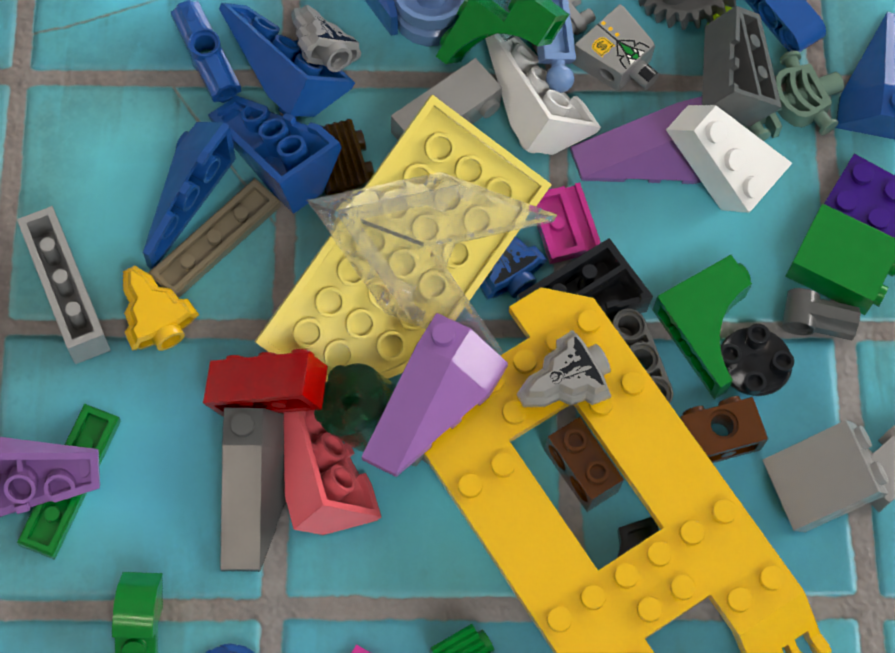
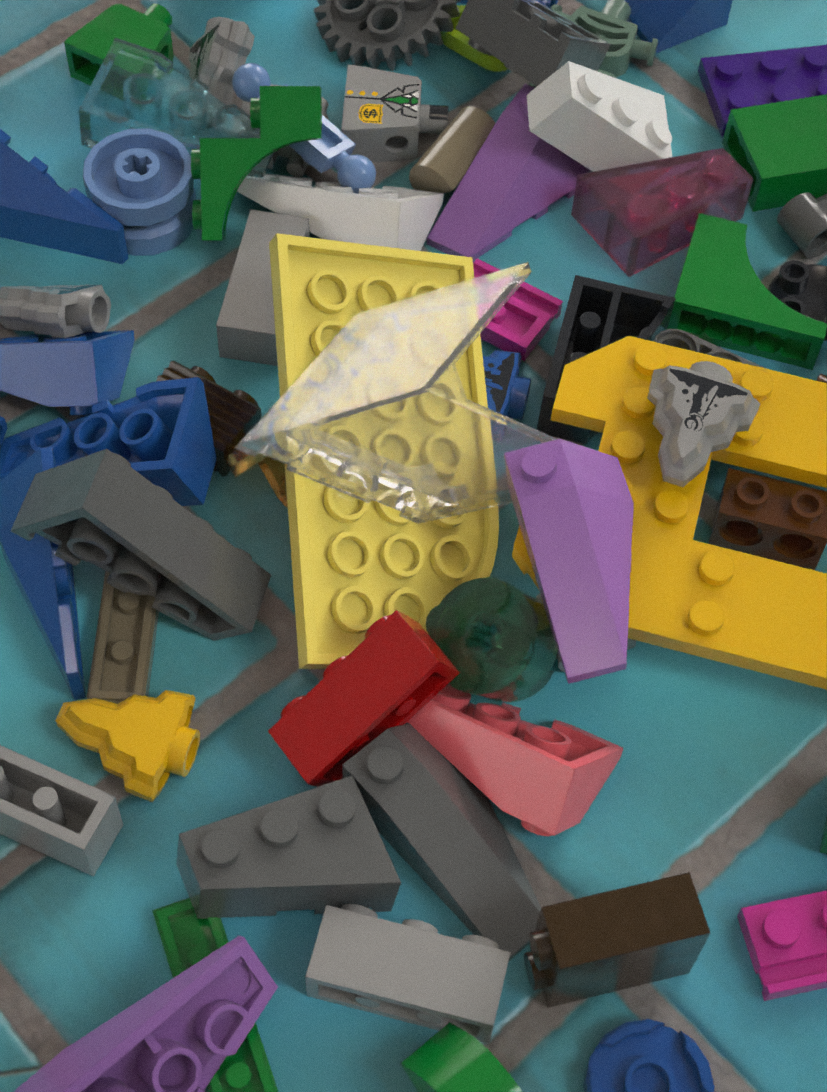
camera: 40 degrees left, 10 degrees down
(163, 431) = (289, 857): none -> dark grey wedge
(169, 533) = (407, 971): none -> light grey brick
(232, 217) = (146, 542): none -> dark grey wedge
(268, 603) = (616, 940): none -> dark brown brick
(631, 104) = (452, 152): none -> dark tan brick
(712, 227) = (653, 206): none -> clear pink wedge

